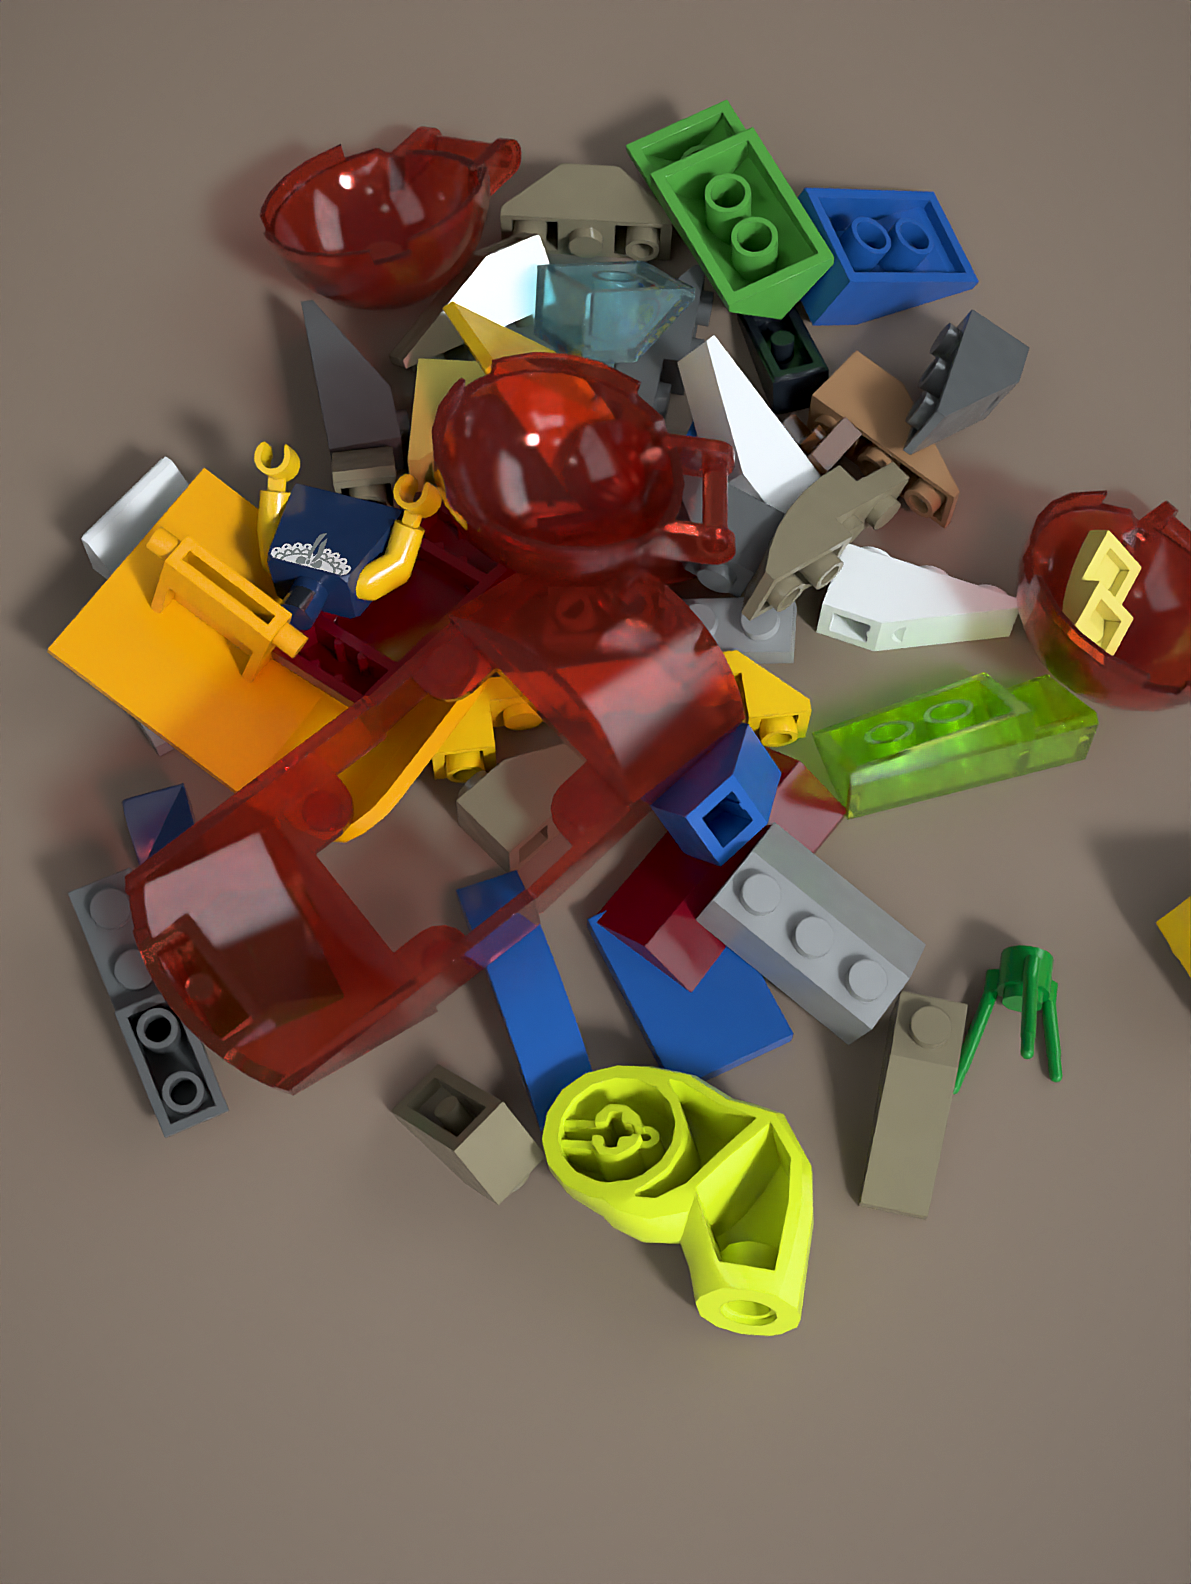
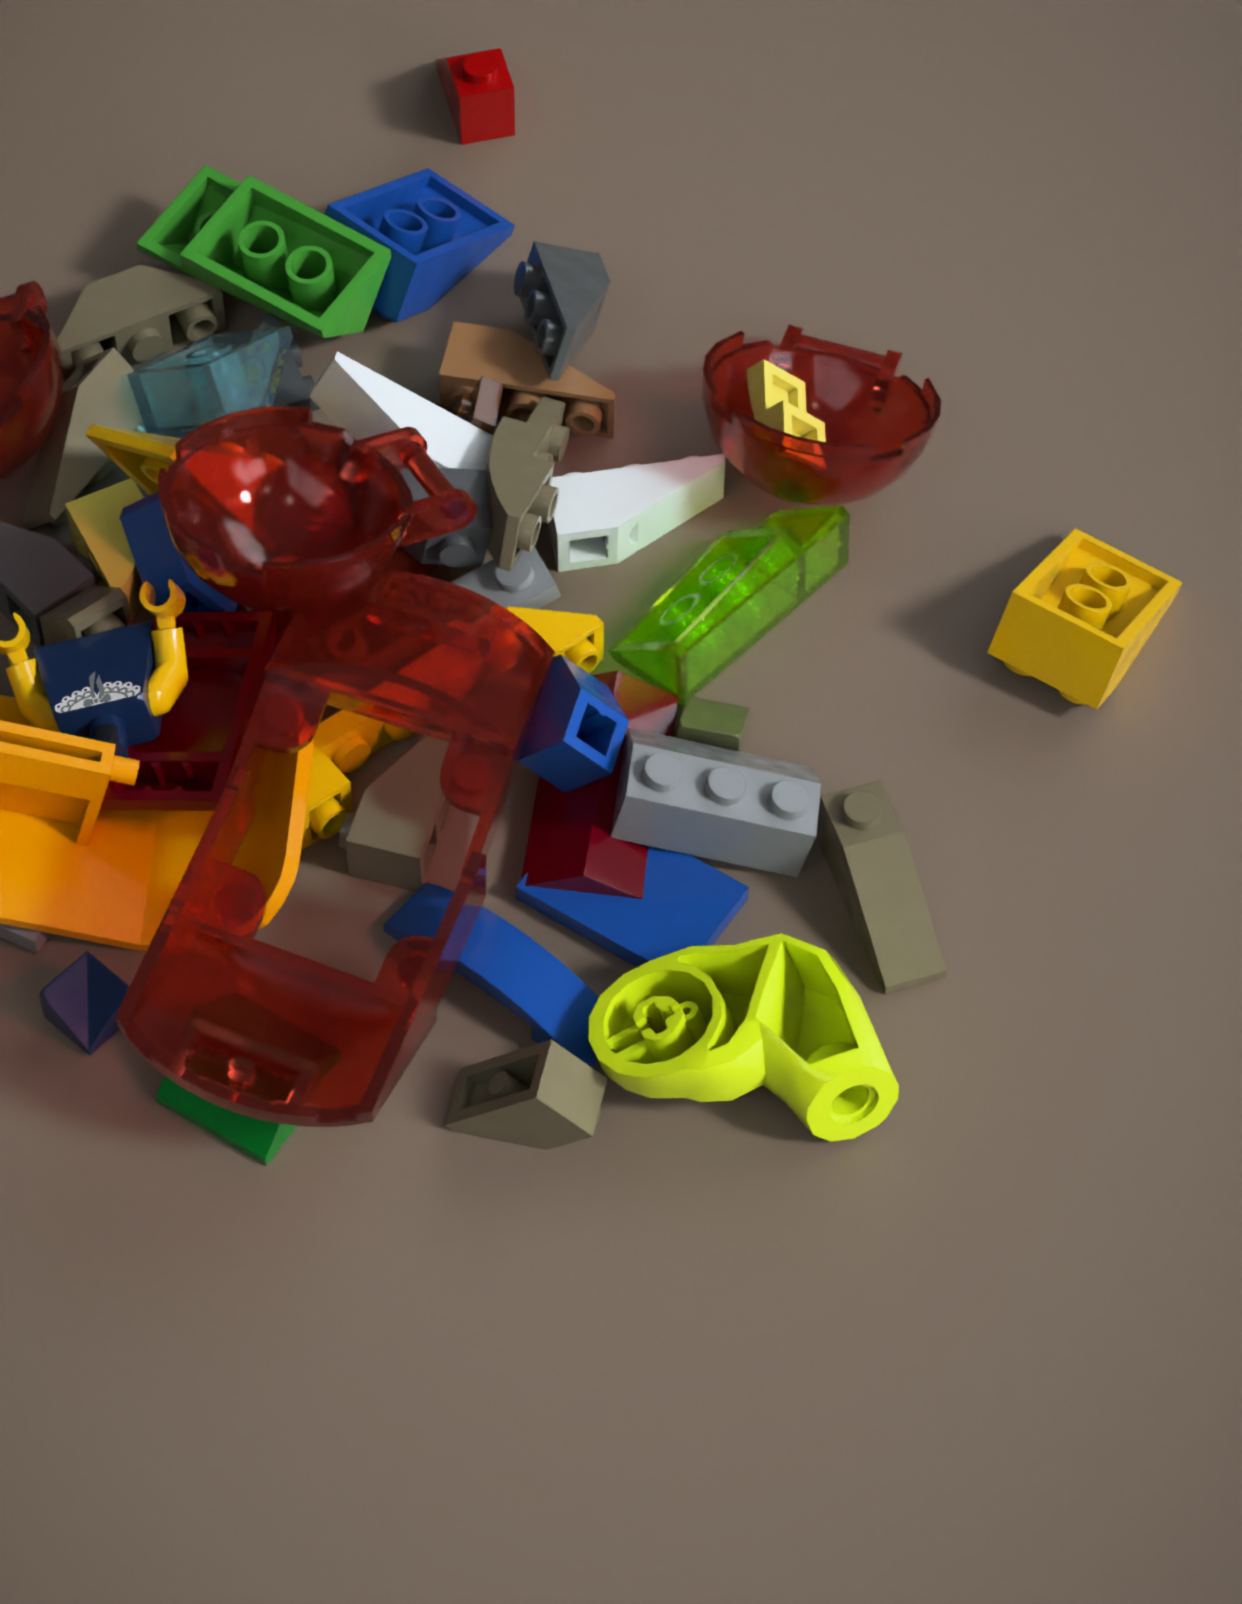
camera: 30 degrees left, 10 degrees down
(163, 1049) = (173, 1146): dark grey slope -> none
(784, 360) = (390, 355): black slope -> none
(860, 855) = (713, 723): none -> olive slope
(1019, 143) = (479, 95): none -> red slope
(1026, 987) = (914, 756): green plant -> none

